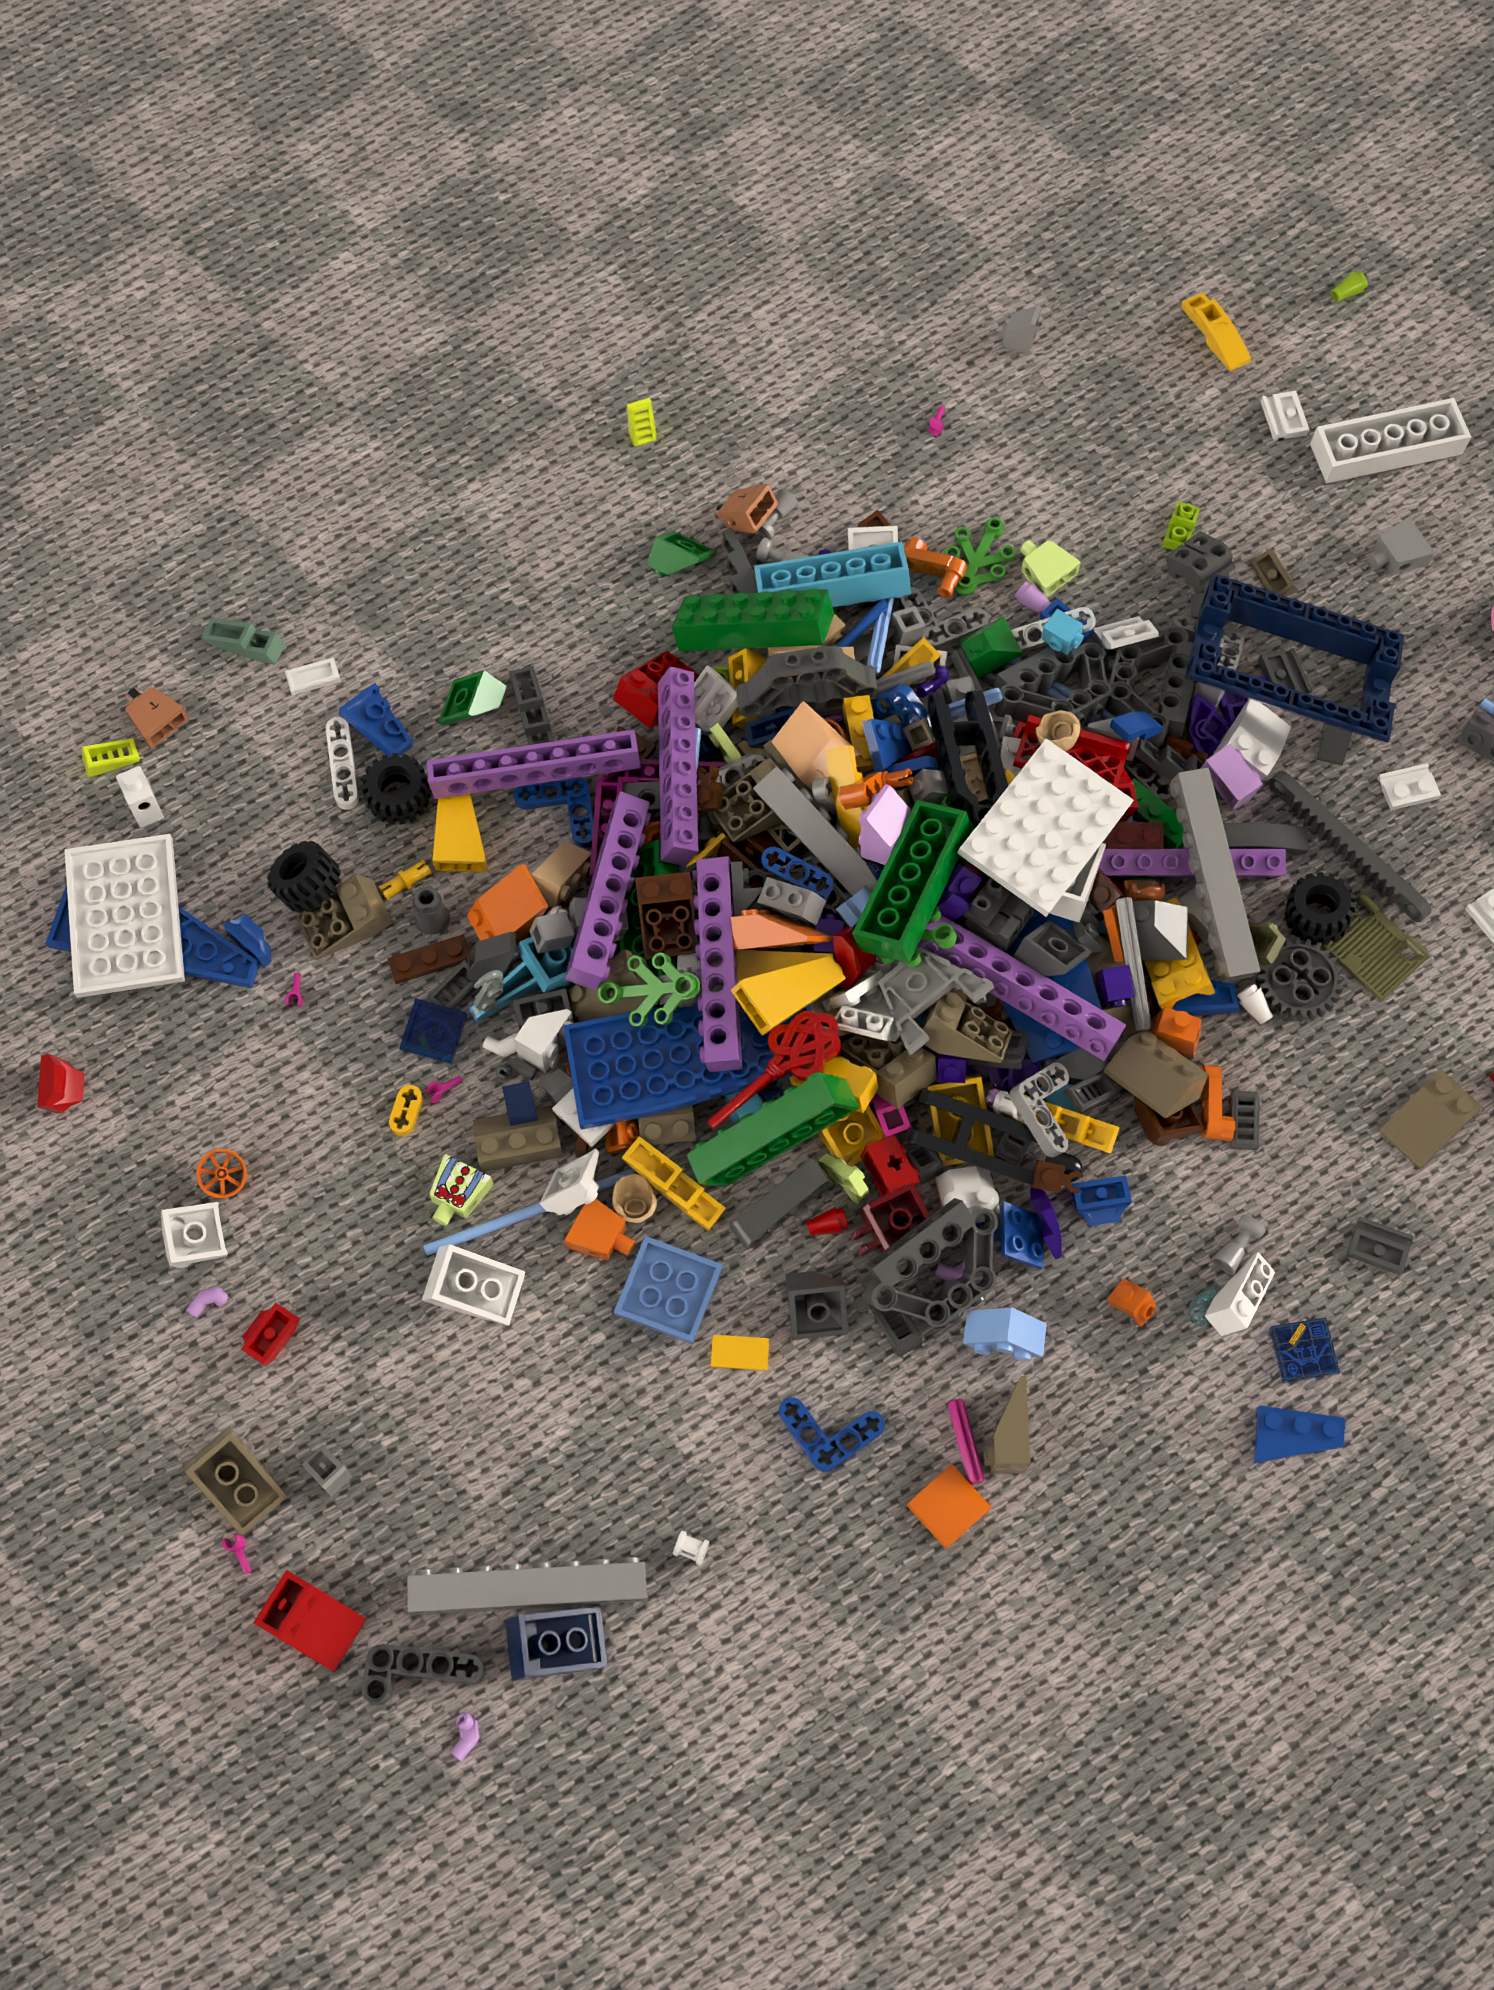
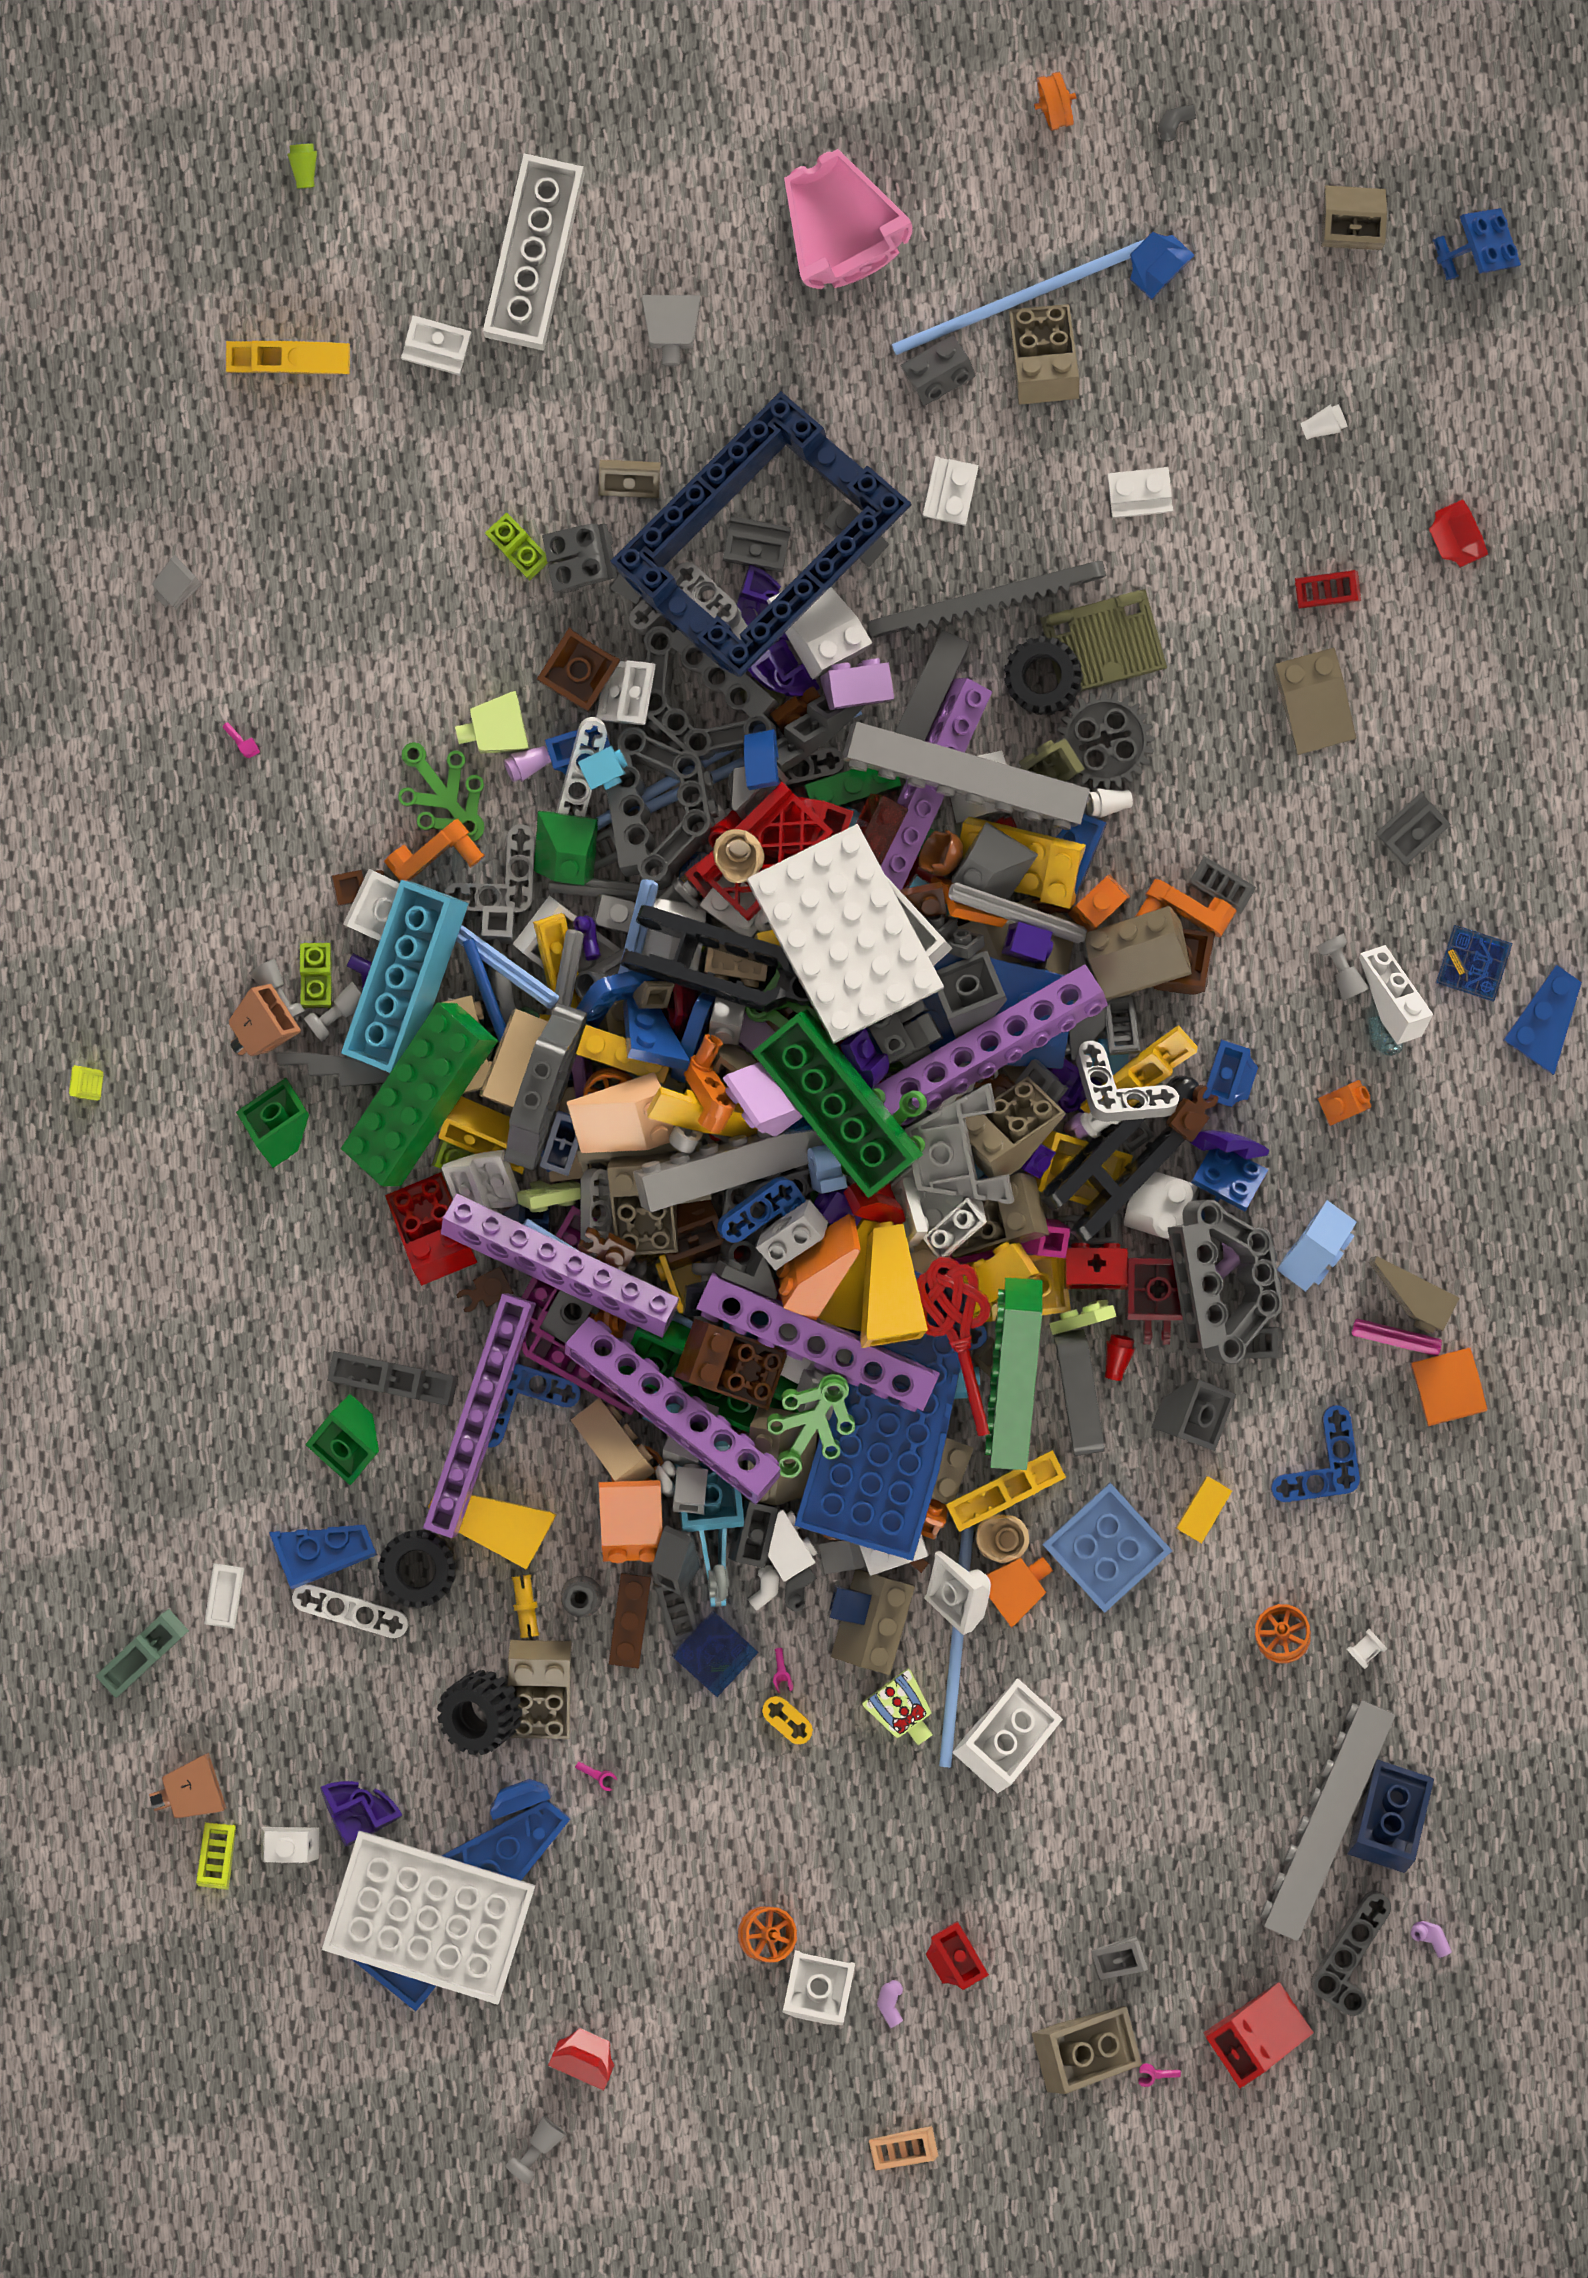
camera: 60 degrees left, 20 degrees up
(96, 1385) = (914, 2135): none -> light nougat slope
(191, 835) = (357, 1809): none -> dark purple brick
(668, 1467) = (1282, 1633): none -> orange wheel
(804, 534) = (316, 975): none -> lime slope
(1119, 597) = (578, 670): none -> reddish brown slope

